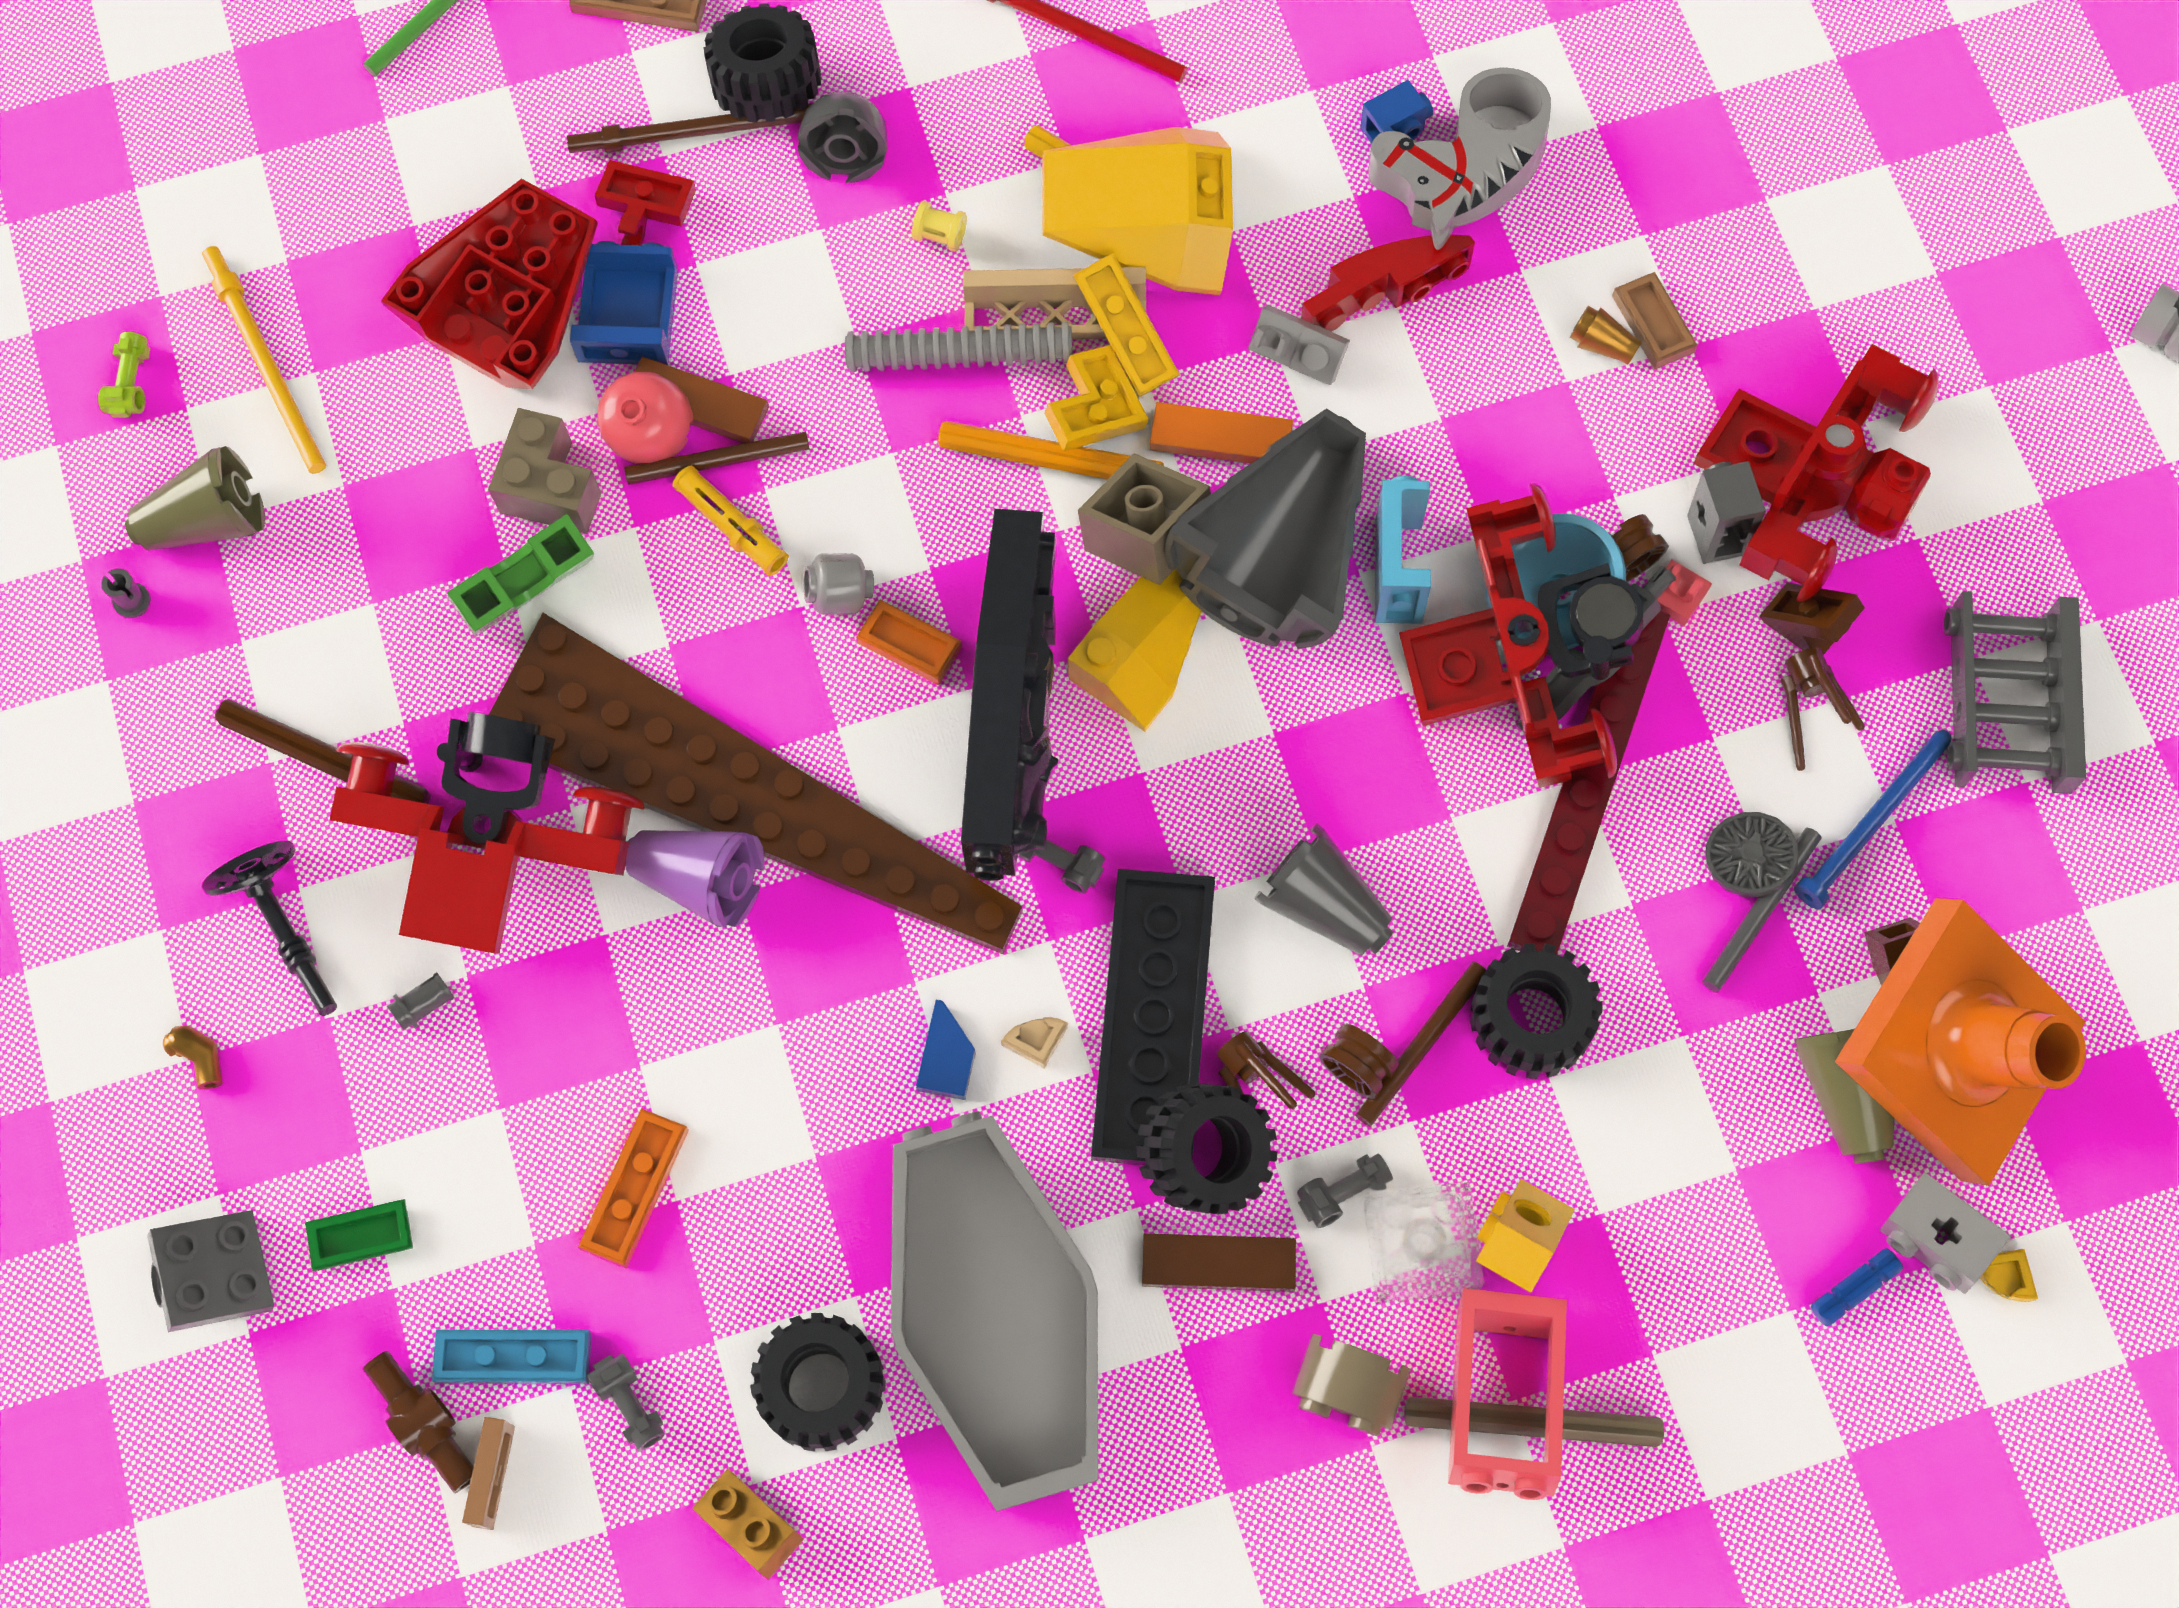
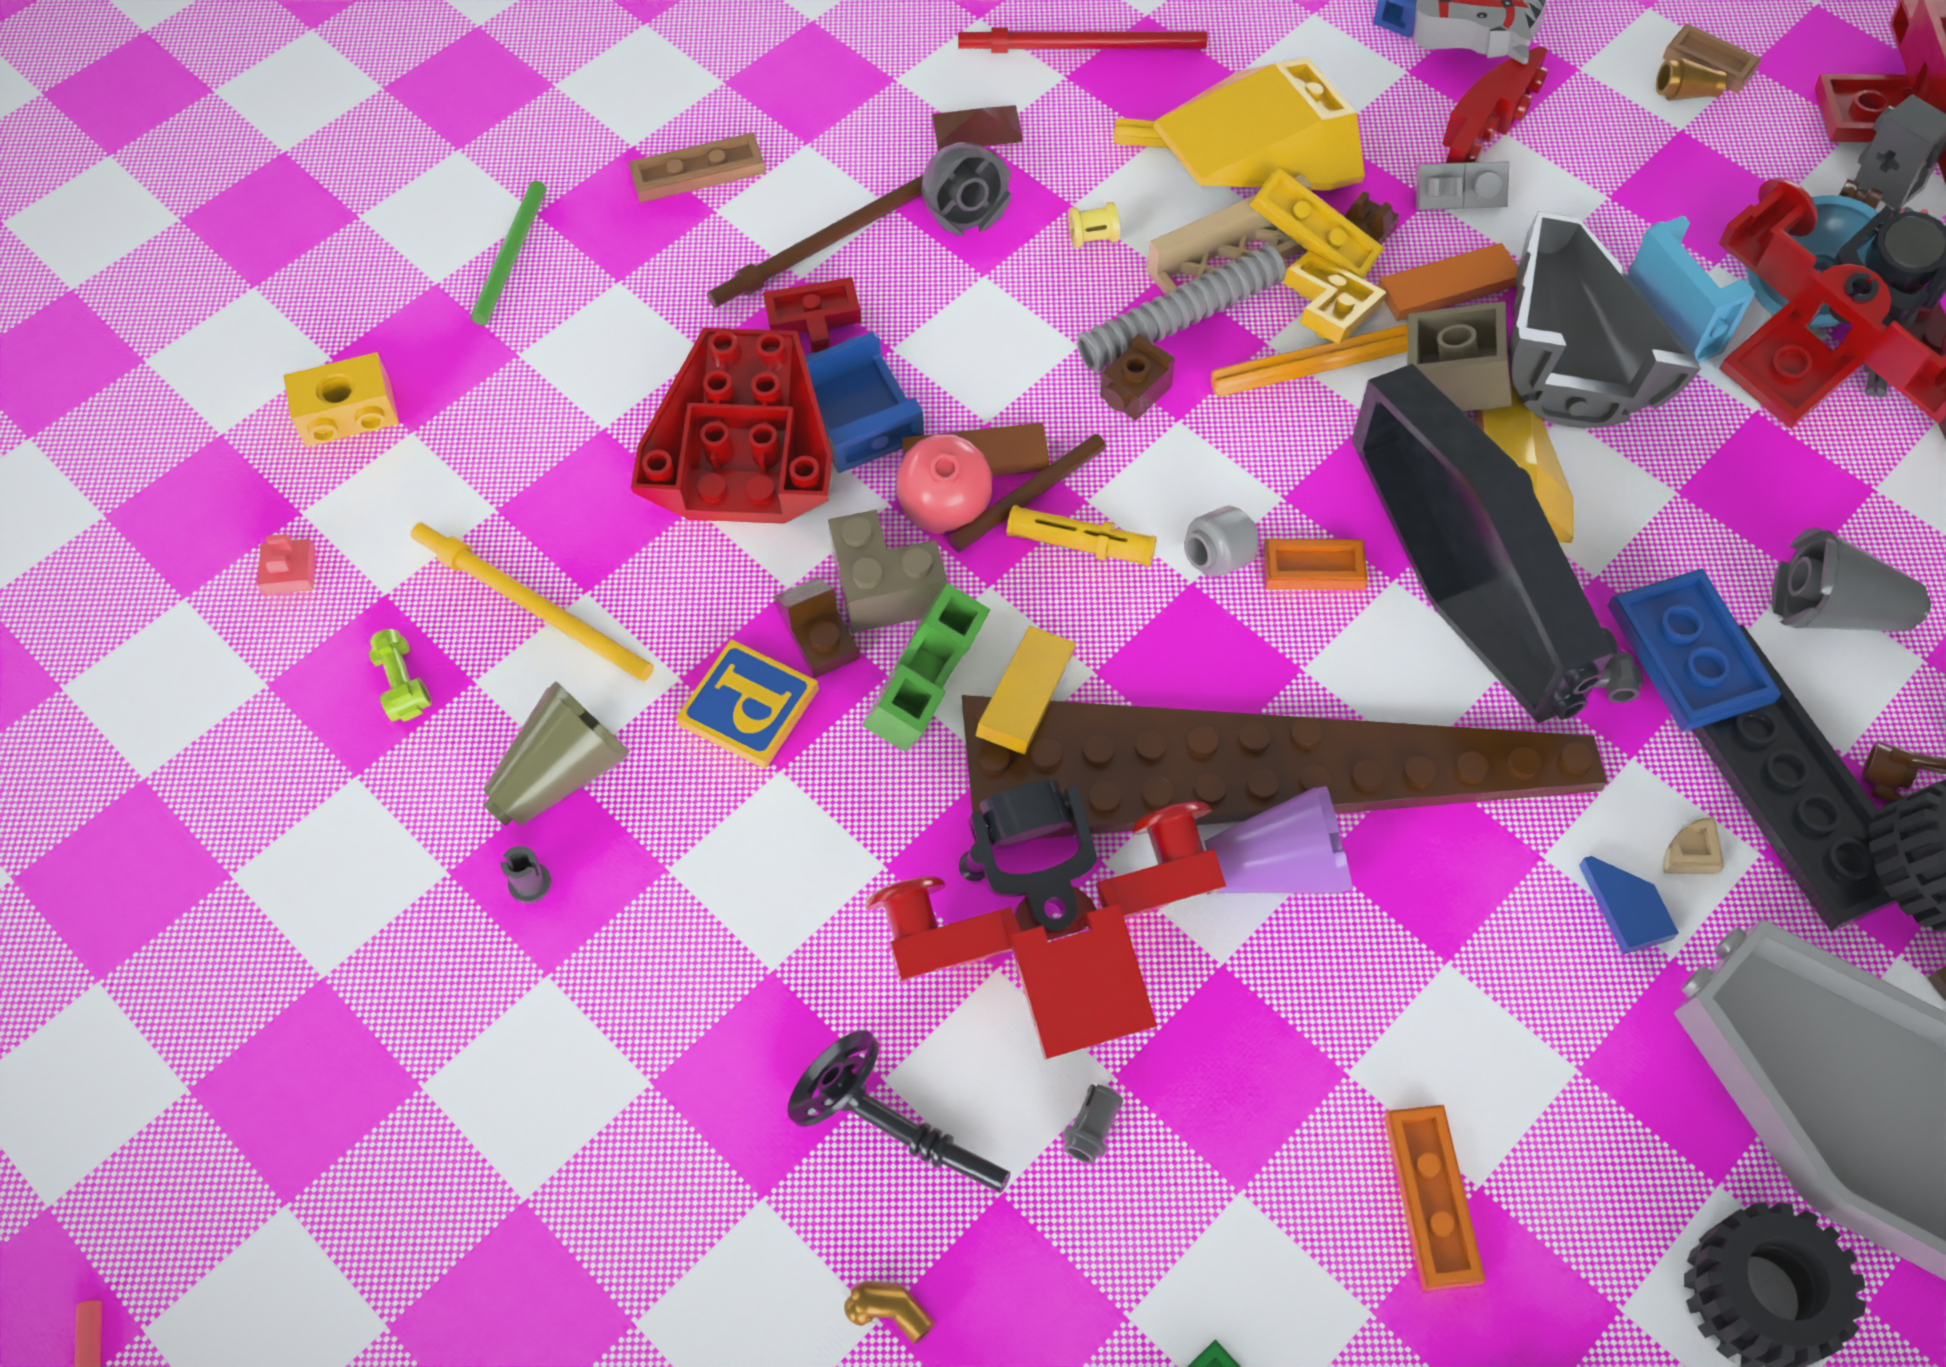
camera: 30 degrees left, 10 degrees down
(96, 234) = (286, 565): none -> coral tile
(193, 86) = (340, 399): none -> yellow brick
(302, 746) = (798, 936): reddish brown axle -> none
(378, 534) = (747, 703): none -> tile
(468, 504) = (817, 626): none -> reddish brown slope
(590, 633) = (1026, 690): none -> yellow tile
(762, 62) = (854, 159): black tyre -> none
(872, 398) = (1137, 378): none -> reddish brown brick
(912, 72) = (978, 125): none -> reddish brown slope
(1149, 876) = (1693, 650): none -> blue tile
(1190, 341) = (1373, 218): none -> reddish brown tile

